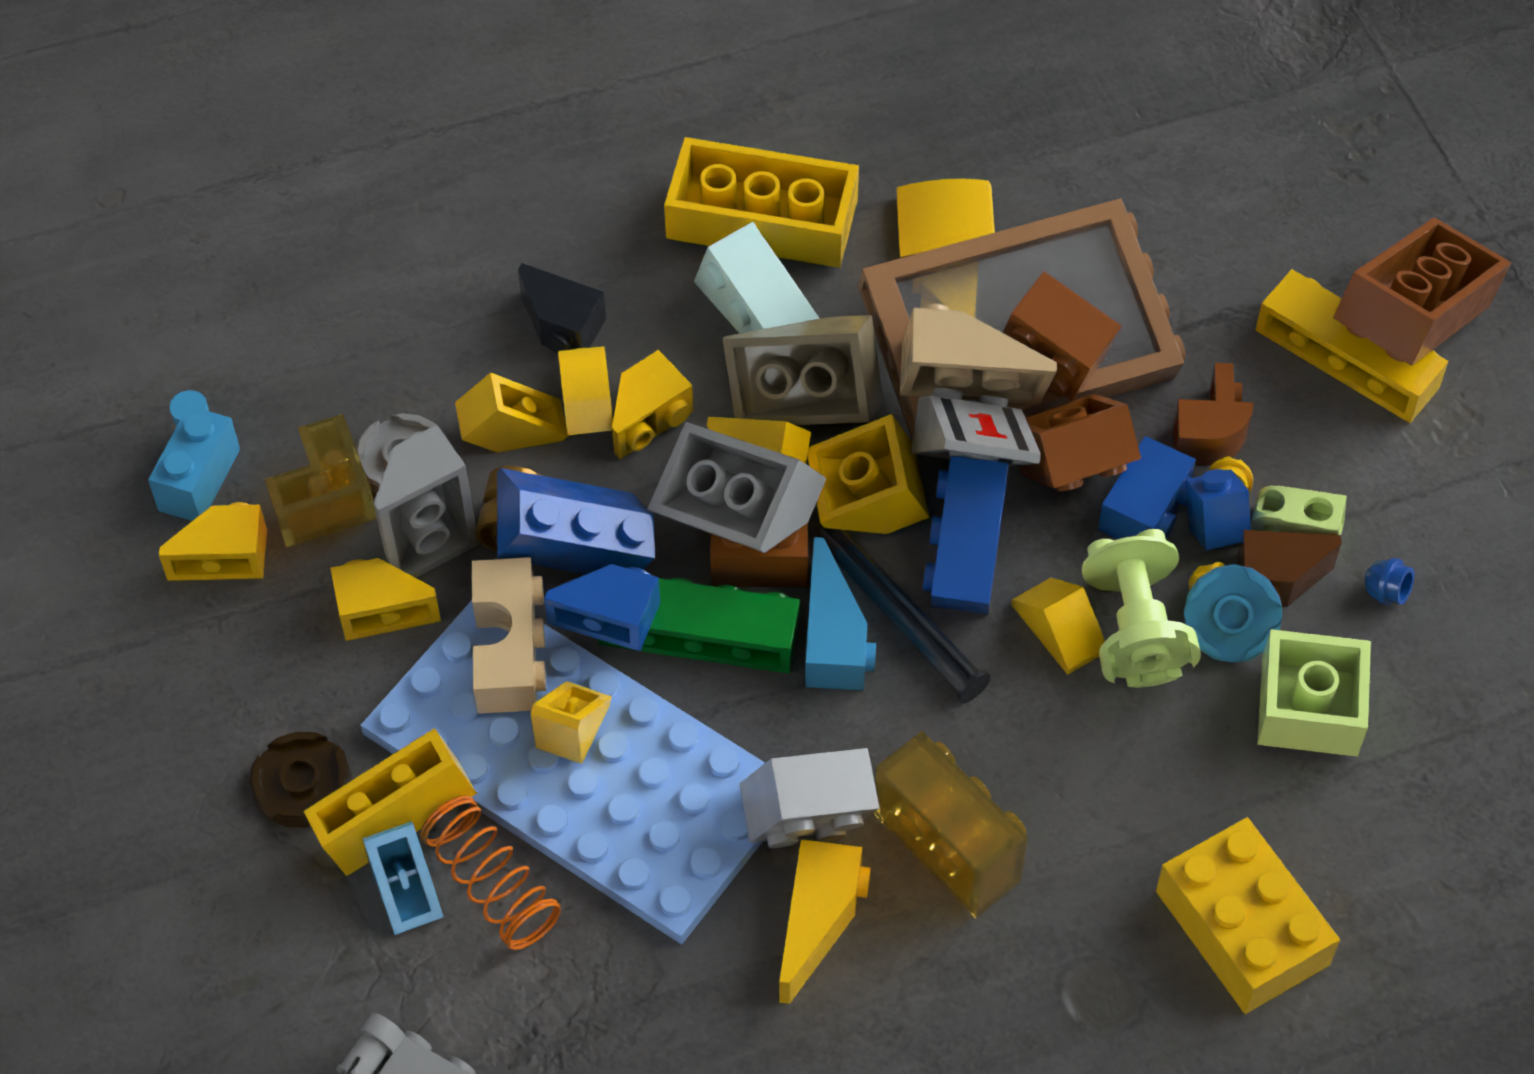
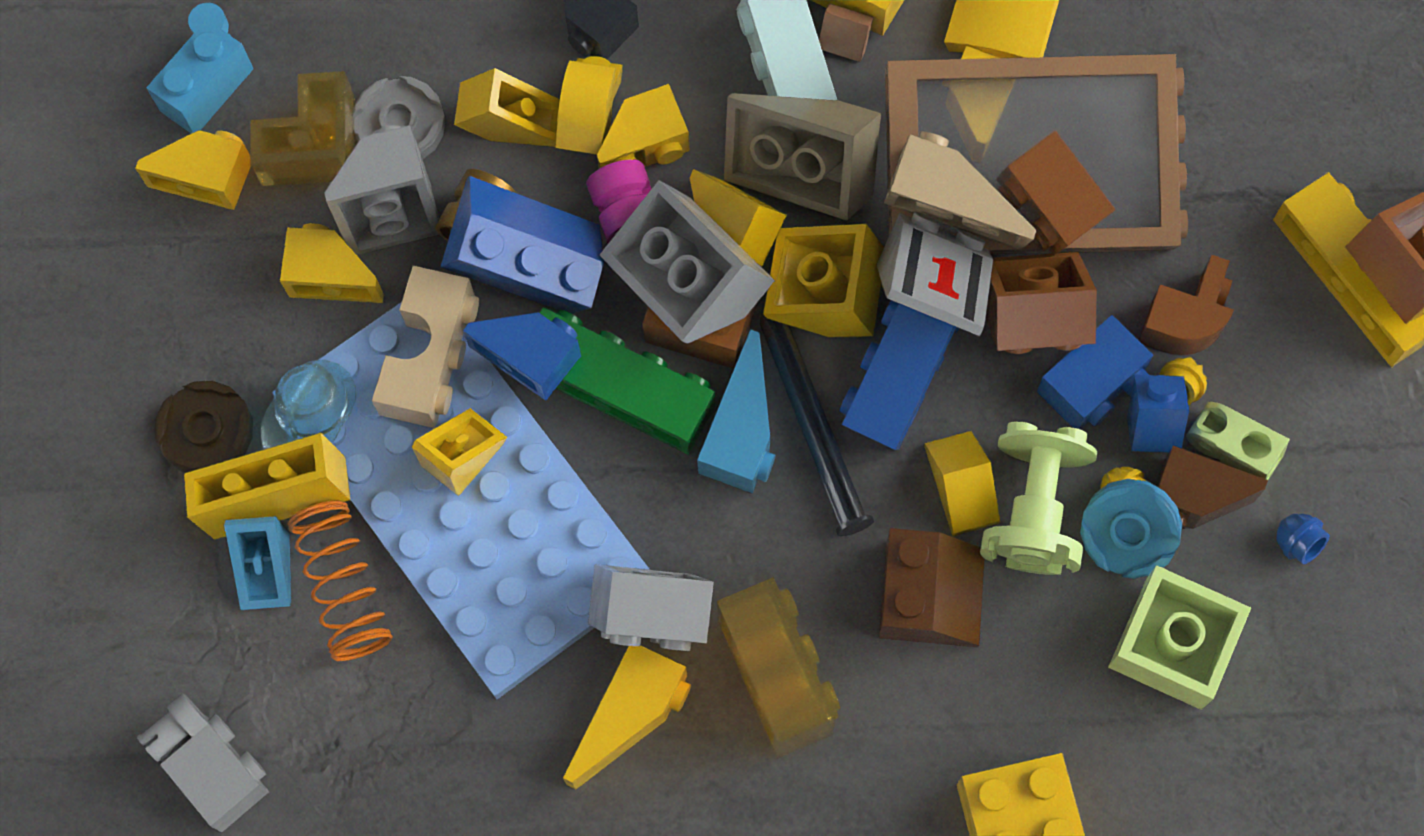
camera: 20 degrees right, 15 degrees up
(401, 714) = (309, 402): none -> clear light blue piece
(641, 457) = (617, 193): none -> dark pink wheel
(808, 268) = (845, 32): none -> nougat tile
(1065, 720) = (931, 589): none -> reddish brown slope

